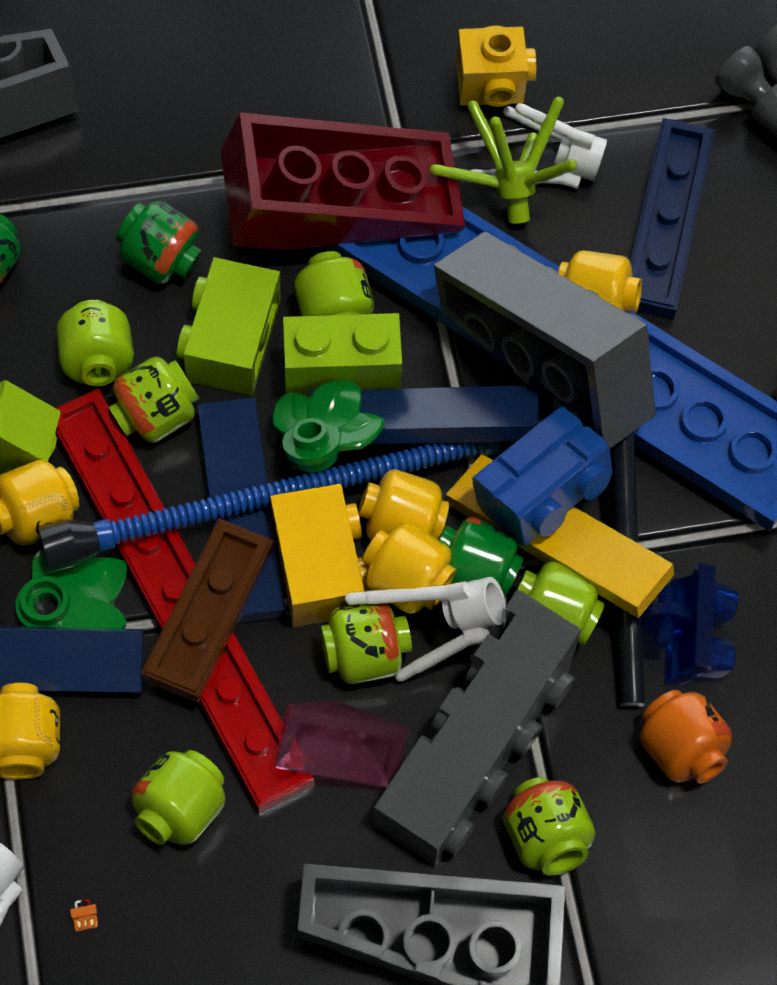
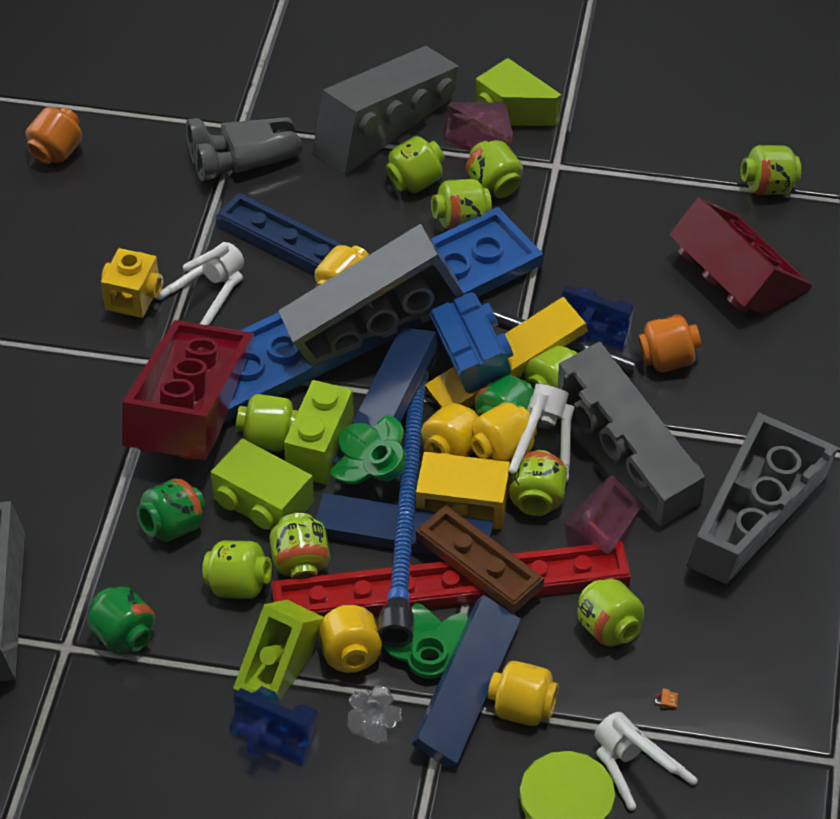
camera: 65 degrees left, 15 degrees down
(513, 178) = (228, 297): lime plant -> none
(549, 826) = (702, 427): lime head -> none

